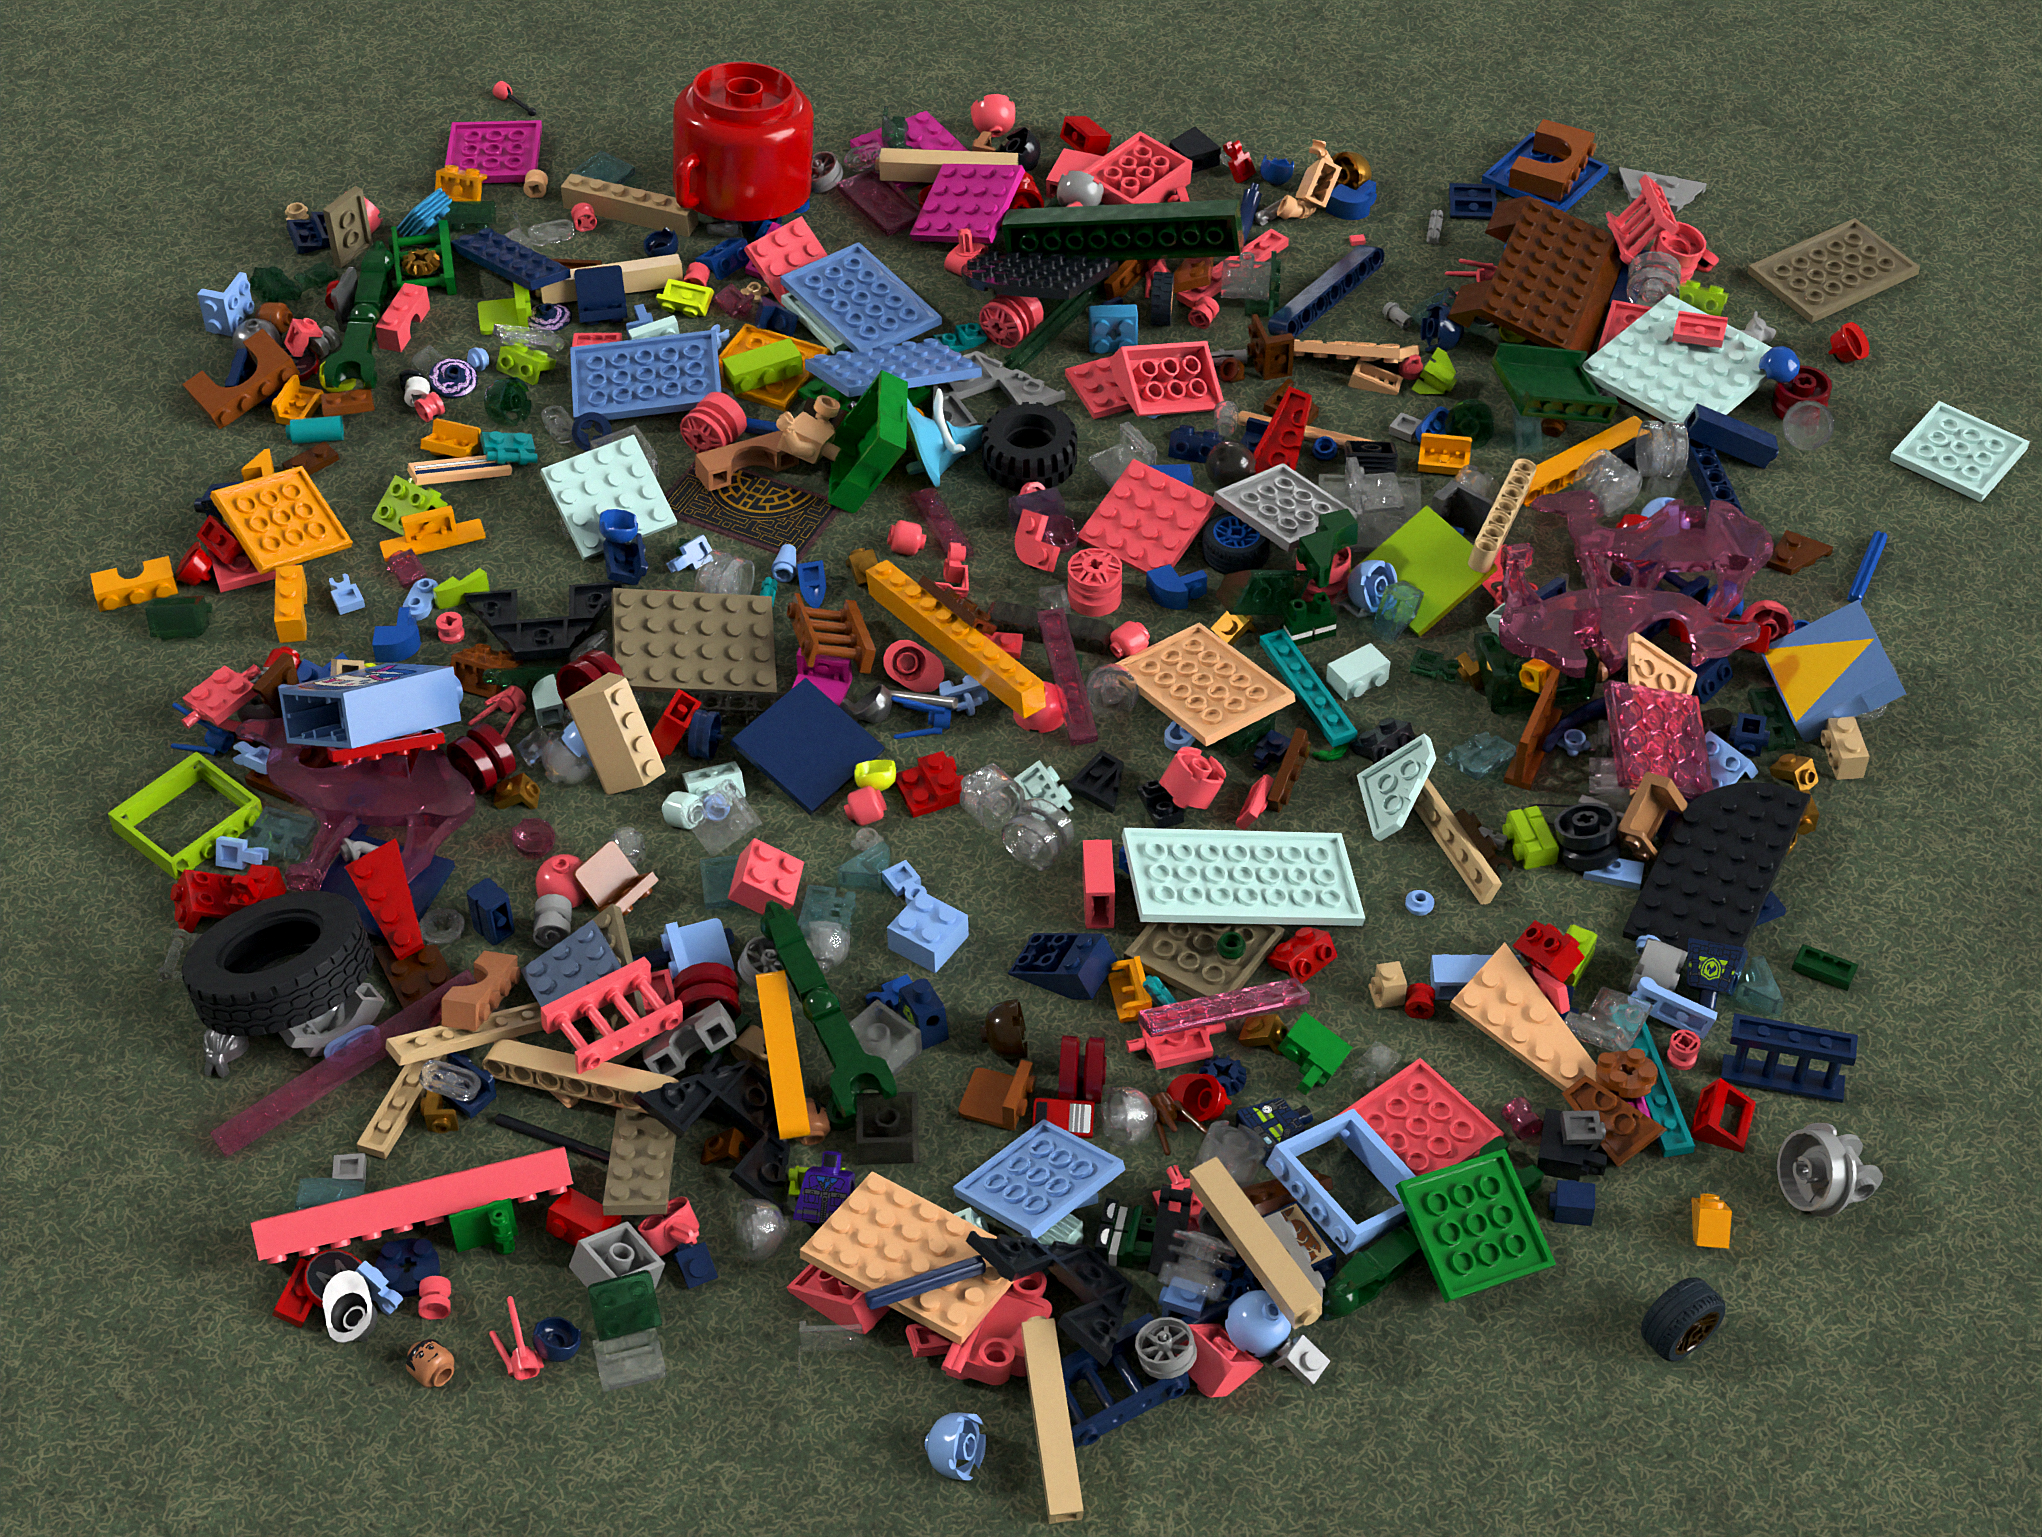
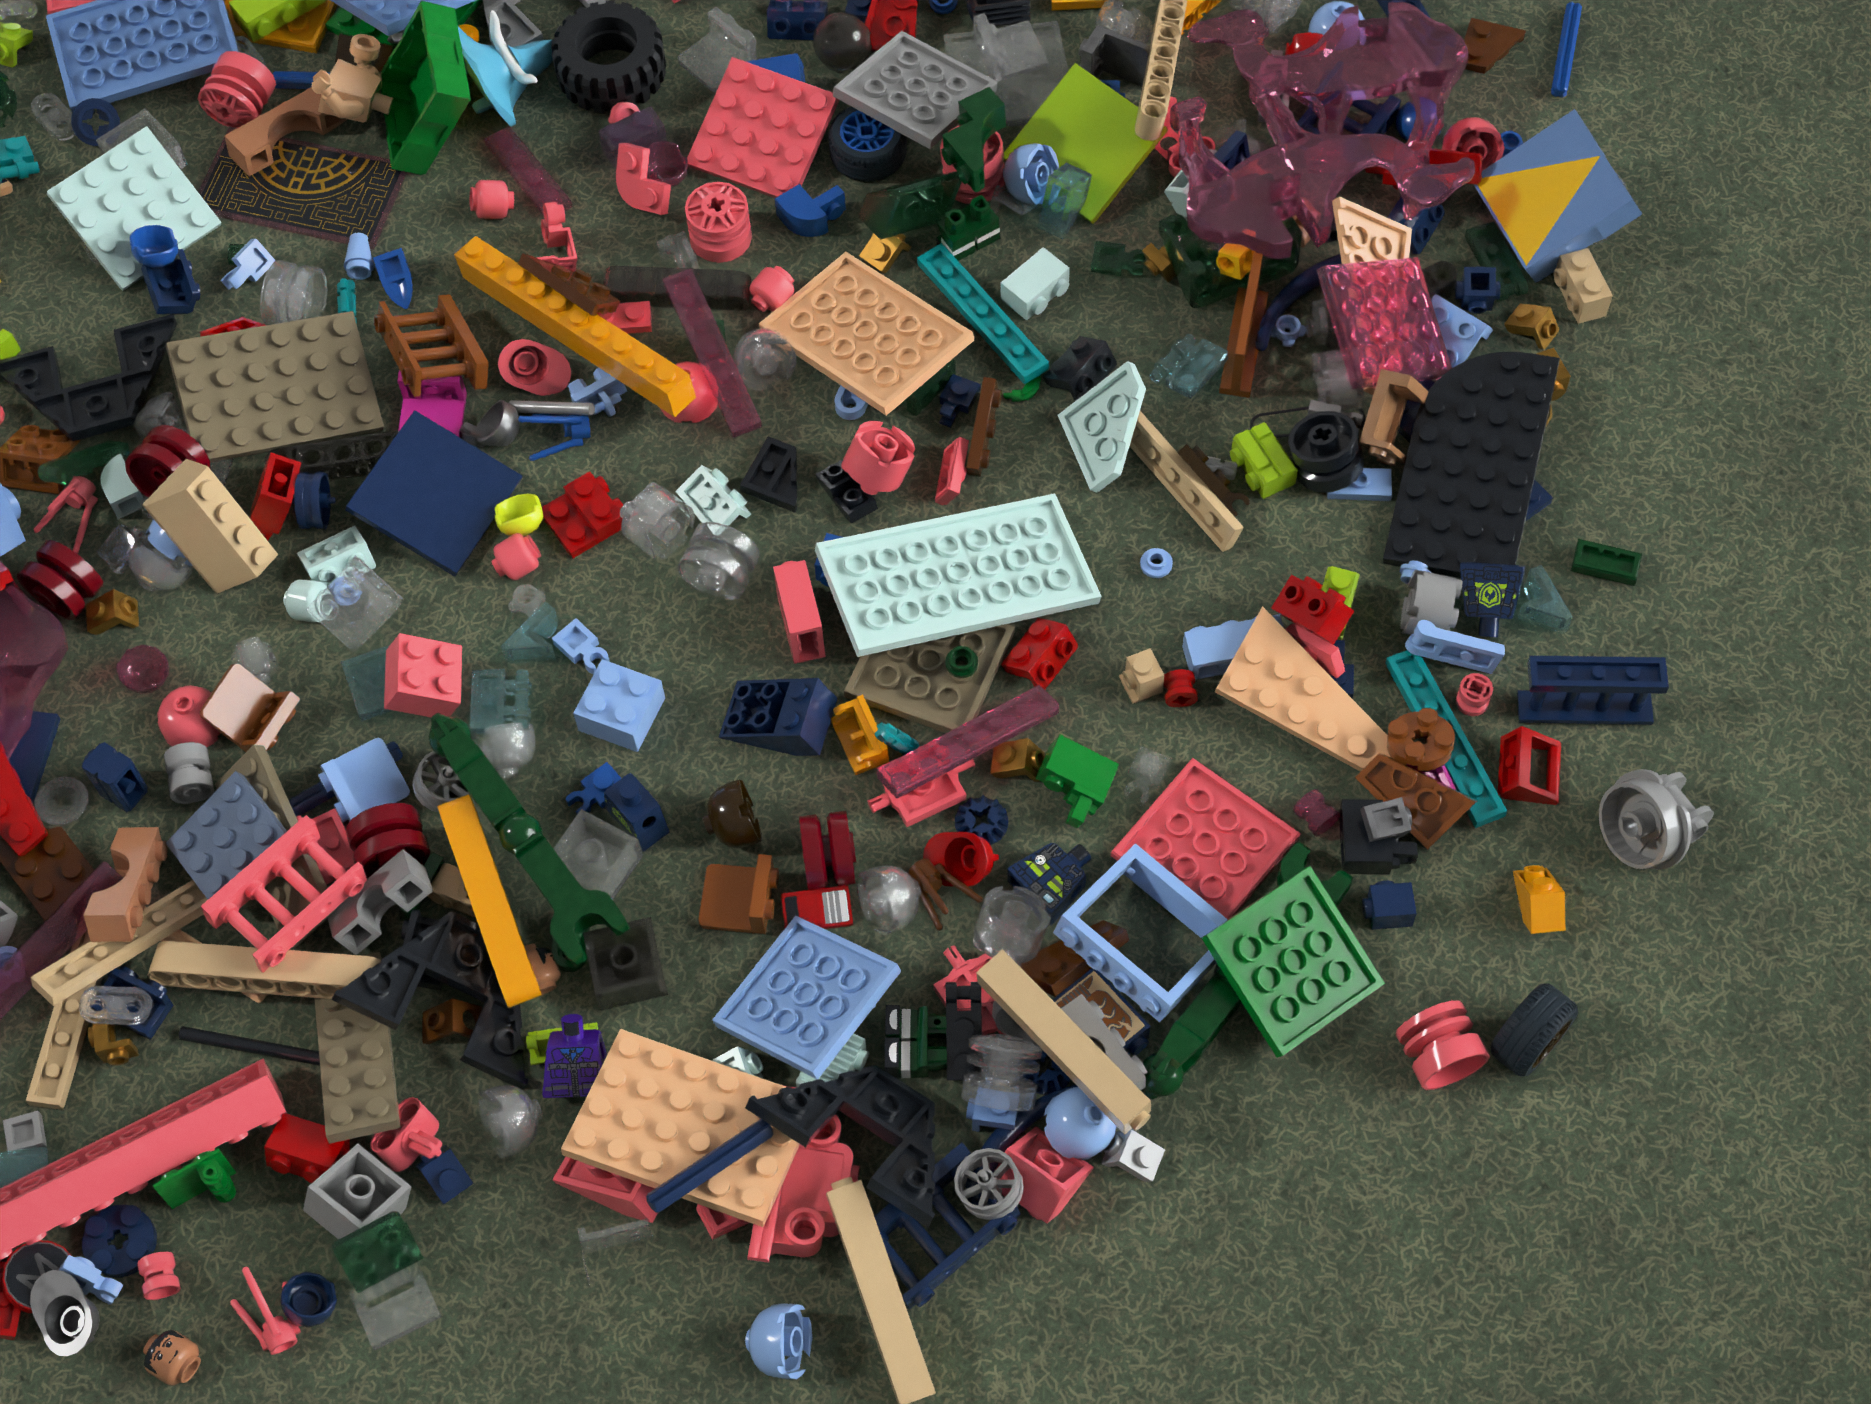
camera: 10 degrees left, 15 degrees up
(859, 561) = (447, 242): pearl gold bracket -> none
(1597, 1317) = (1442, 1045): none -> coral wheel
(1611, 1020) = (1393, 675): clear bracket -> none

